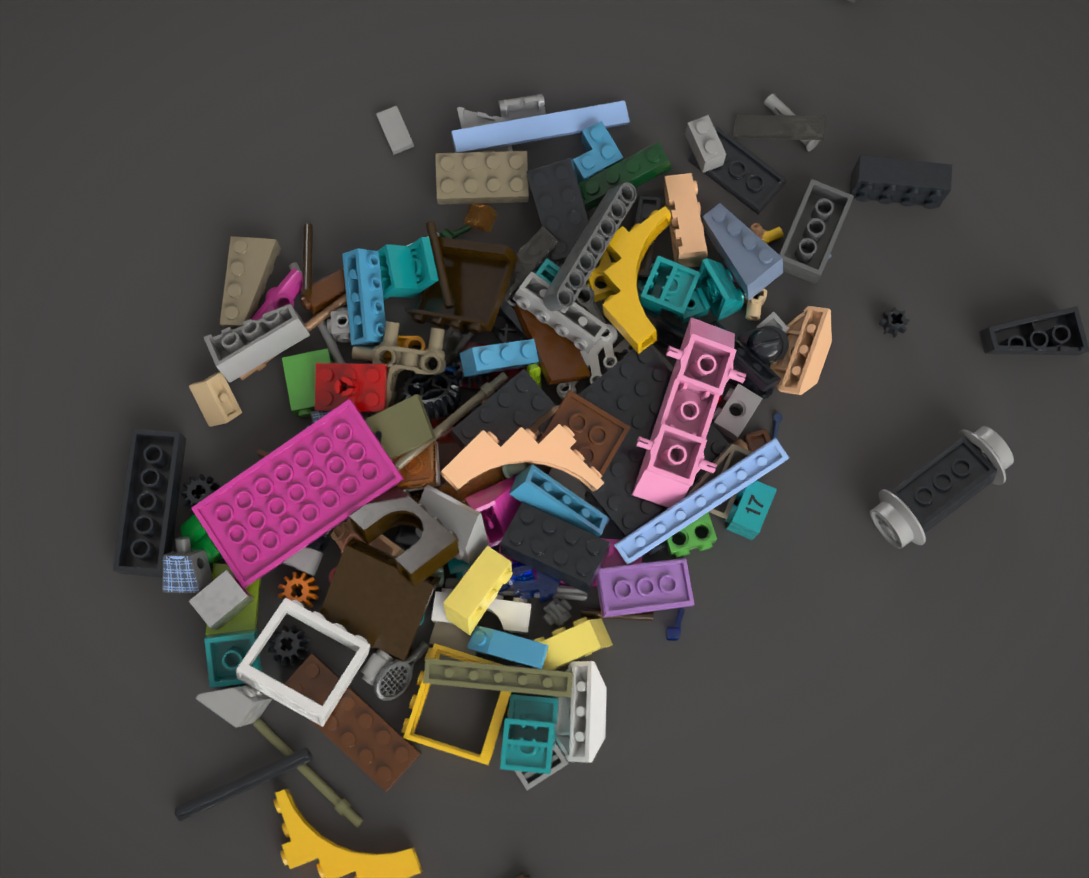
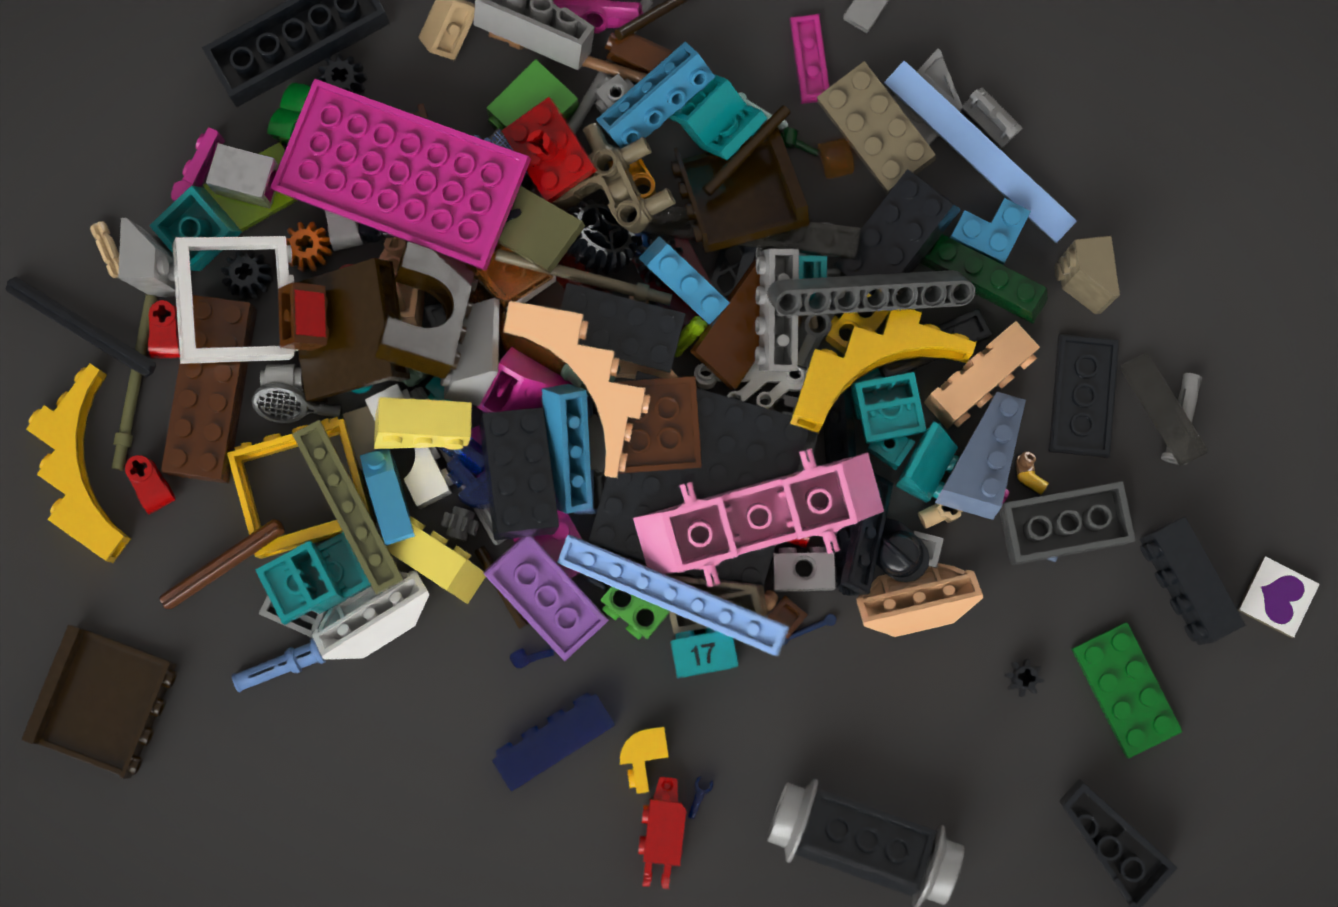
camera: 55 degrees right, 5 degrees up
(185, 569) = (252, 118): dark grey torso -> none
(191, 630) = (197, 169): none -> dark pink hinge
(202, 730) = (106, 247): none -> tan axle
(291, 730) = (163, 335): none -> red piece
(349, 621) = (302, 316): none -> brick
(391, 807) = (152, 487): none -> red piece
(404, 190) = (809, 57): none -> dark pink tile
(477, 792) = (222, 564): none -> reddish brown axle
(565, 830) = (294, 663): none -> medium blue pin
(667, 110) = (1089, 272): none -> dark tan slope
(705, 143) = (1084, 340): light grey brick -> none
(744, 646) = (553, 742): none -> clear blue brick
(785, 595) = (641, 747): none -> yellow brick
(839, 575) = (698, 798): none -> clear blue hand
(849, 613) = (665, 830): none -> red hinge
(940, 139) = (1278, 597): none -> tile
(940, 267) = (1127, 690): none -> green plate

